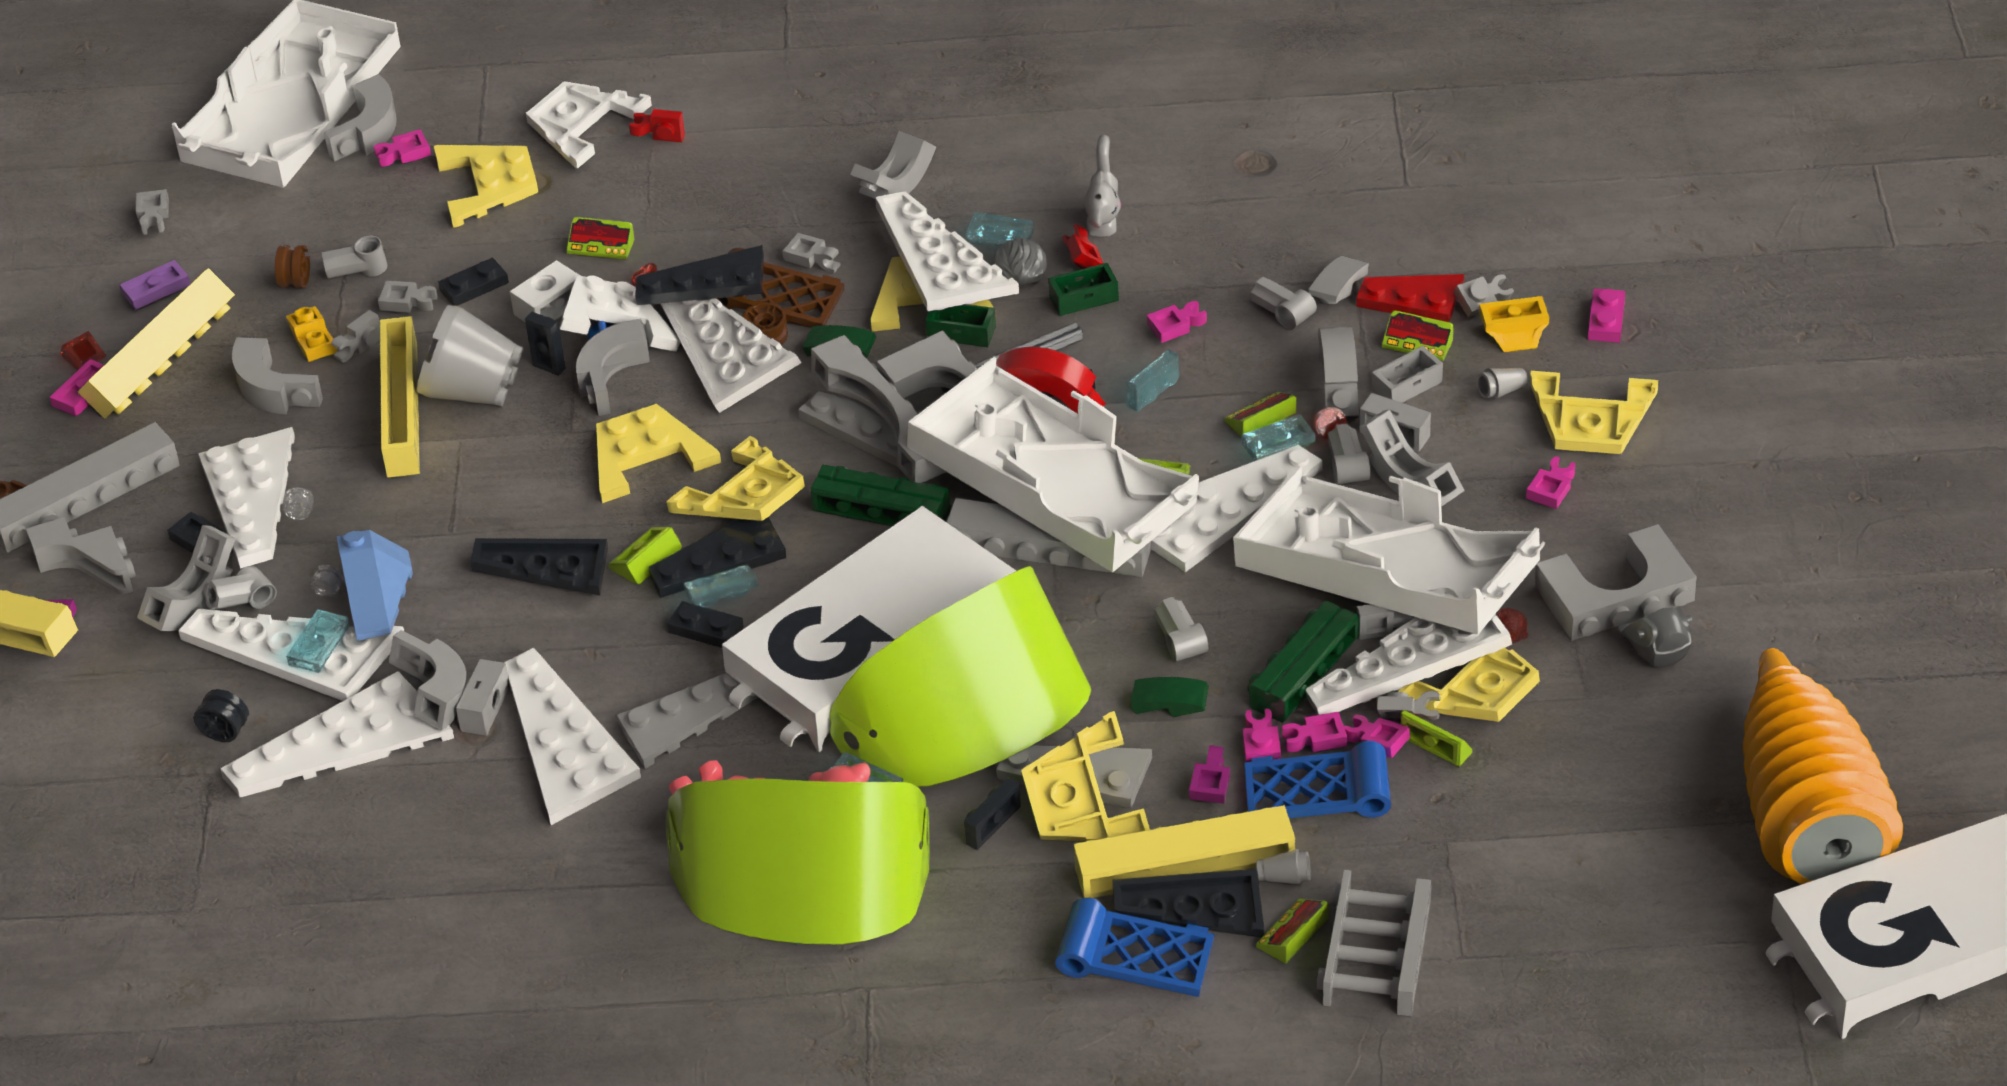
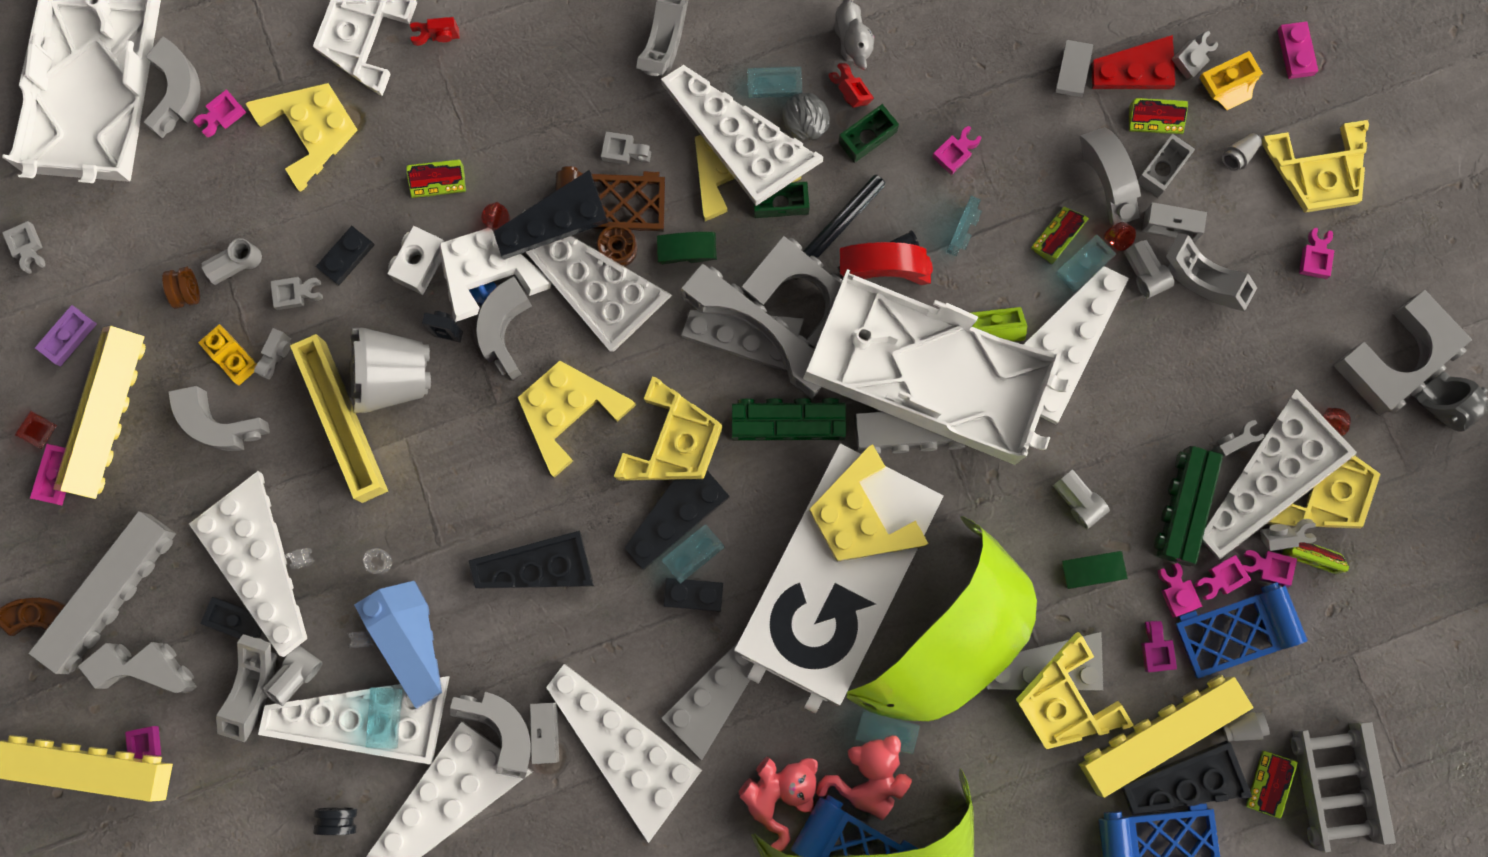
camera: 20 degrees left, 35 degrees up
(379, 518) = (385, 556): none -> clear bush
(645, 551) = (613, 529): lime slope -> none
(901, 563) = (851, 521): none -> light yellow wing
(992, 813) = (998, 749): black plate -> none
(1287, 306) = (1045, 110): light grey piece -> none
(1386, 550) = (1231, 382): white piece -> none

